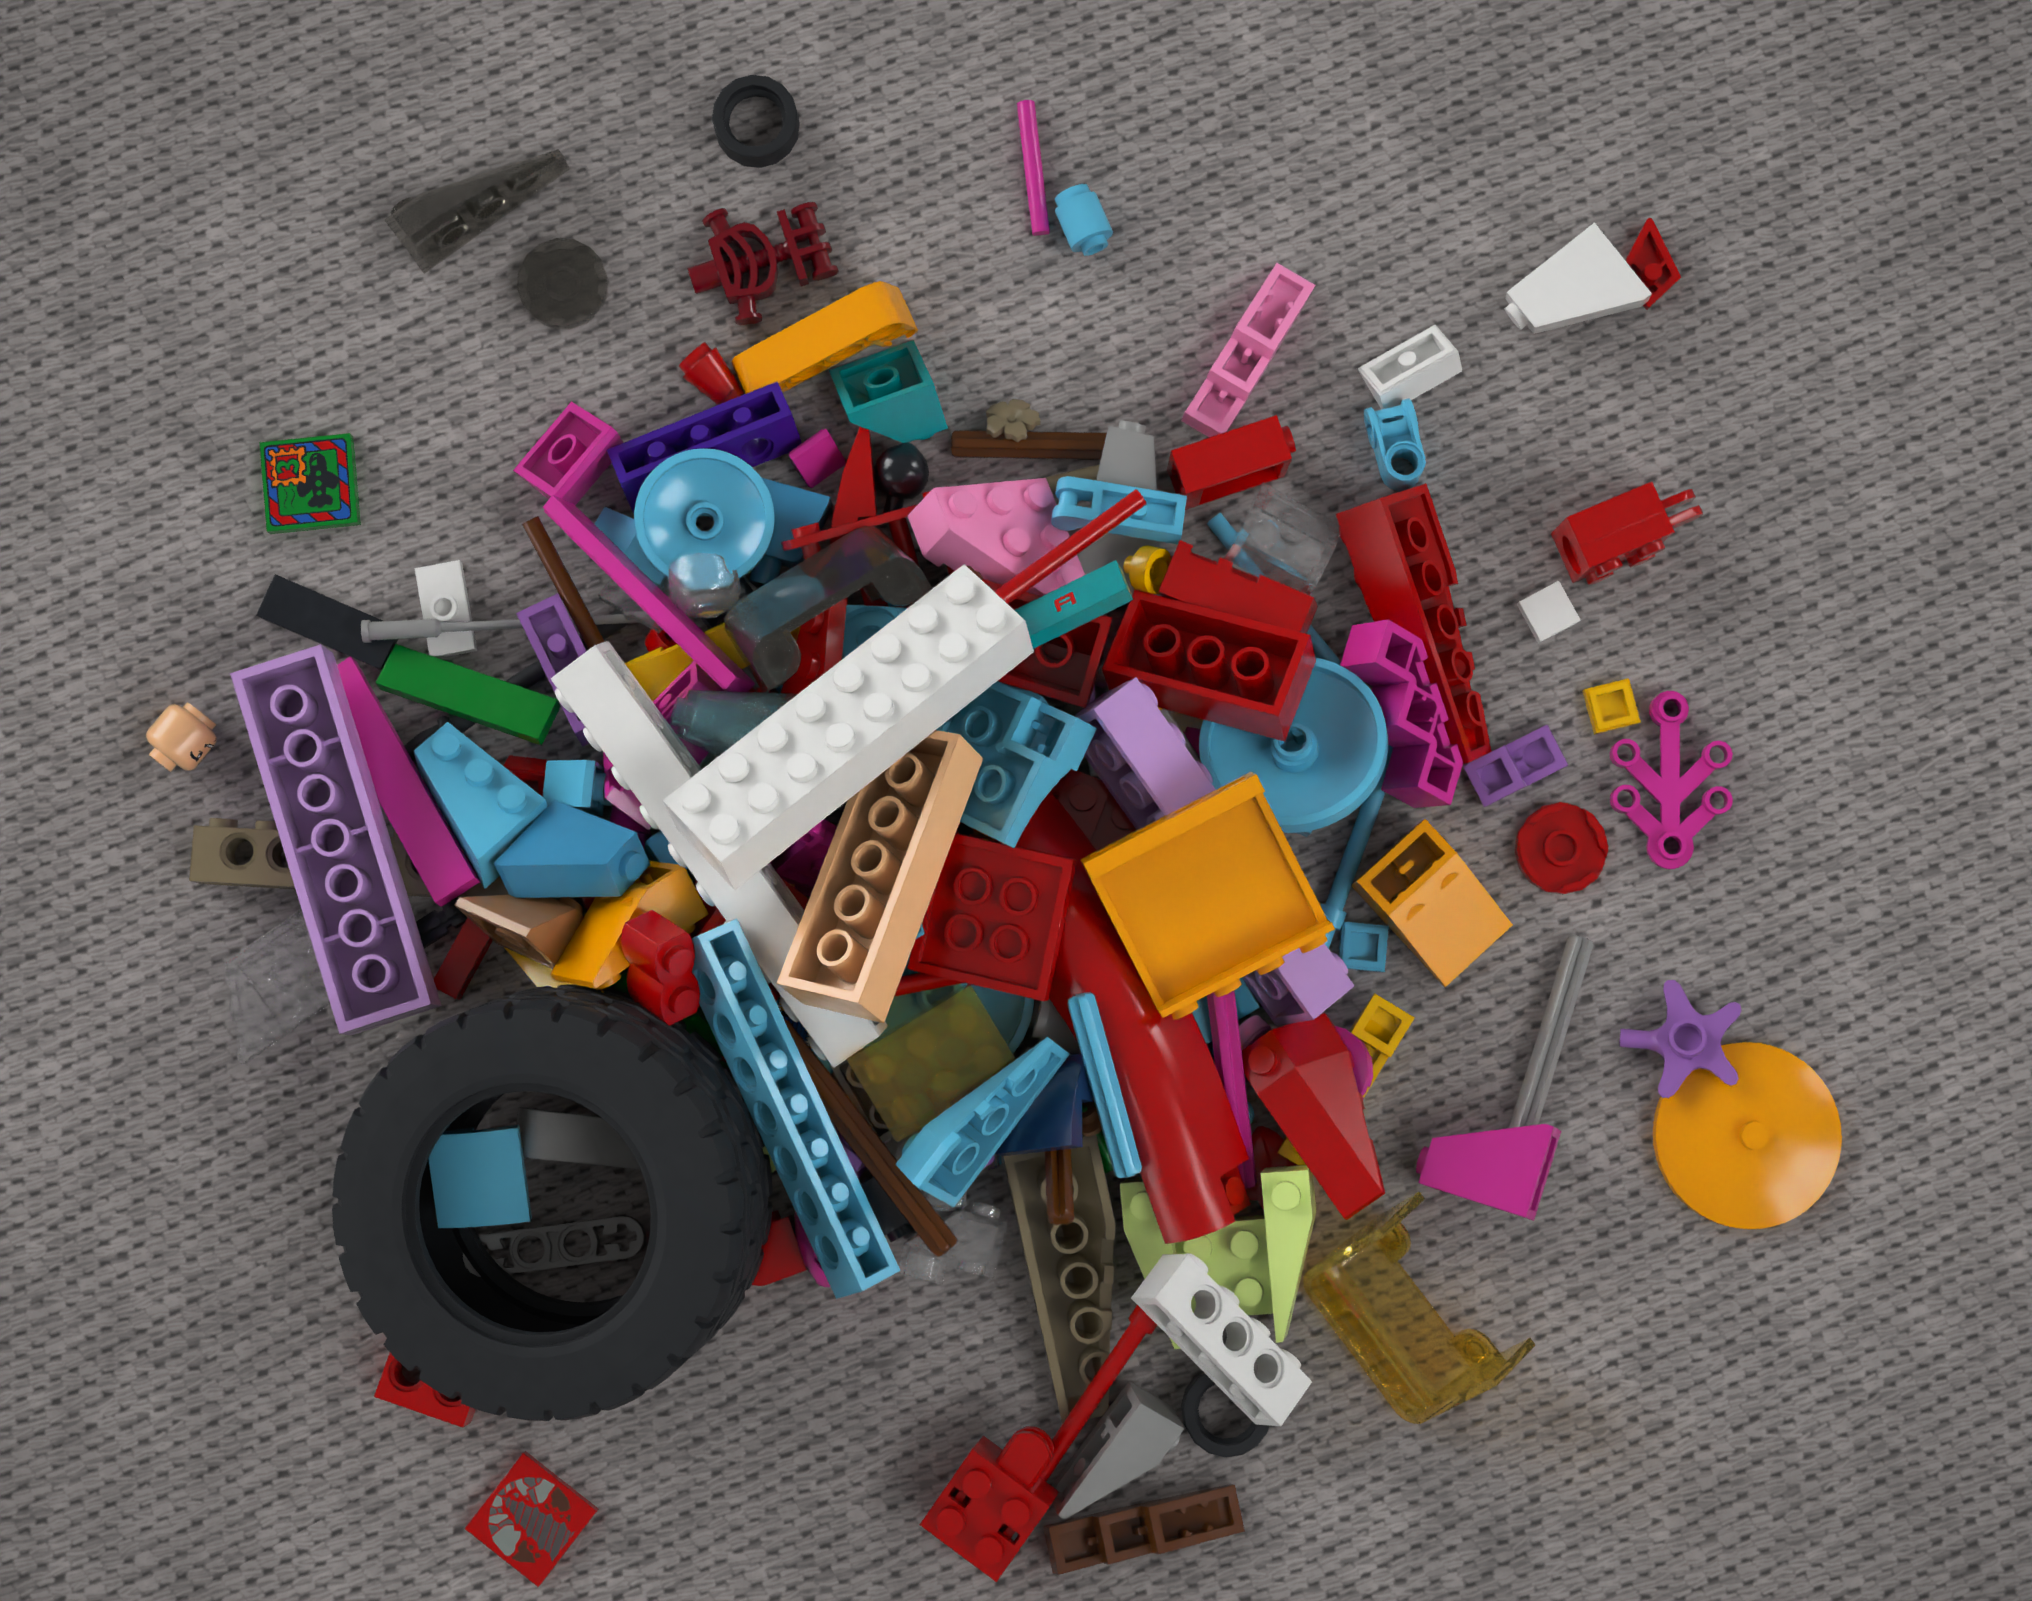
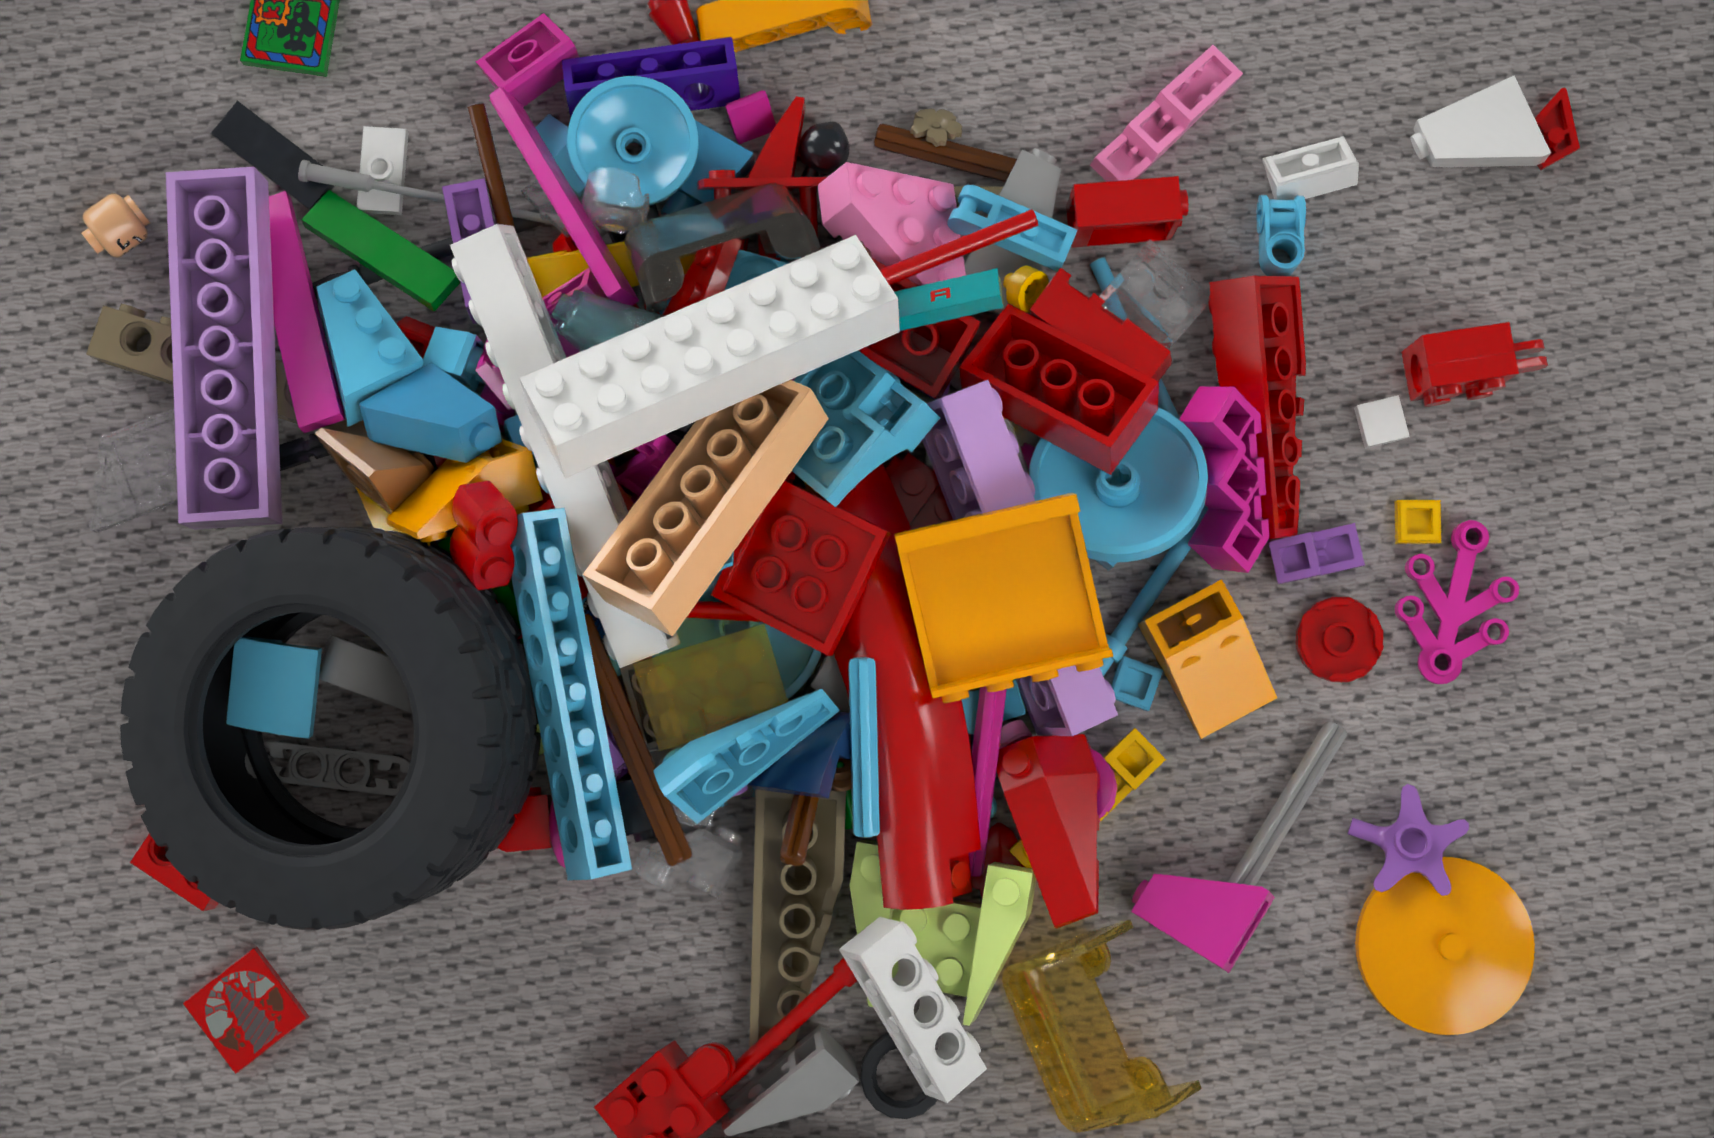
camera: 15 degrees right, 0 degrees up
(462, 960) = (314, 489): red piece -> none
(891, 394) = (833, 76): teal slope -> none

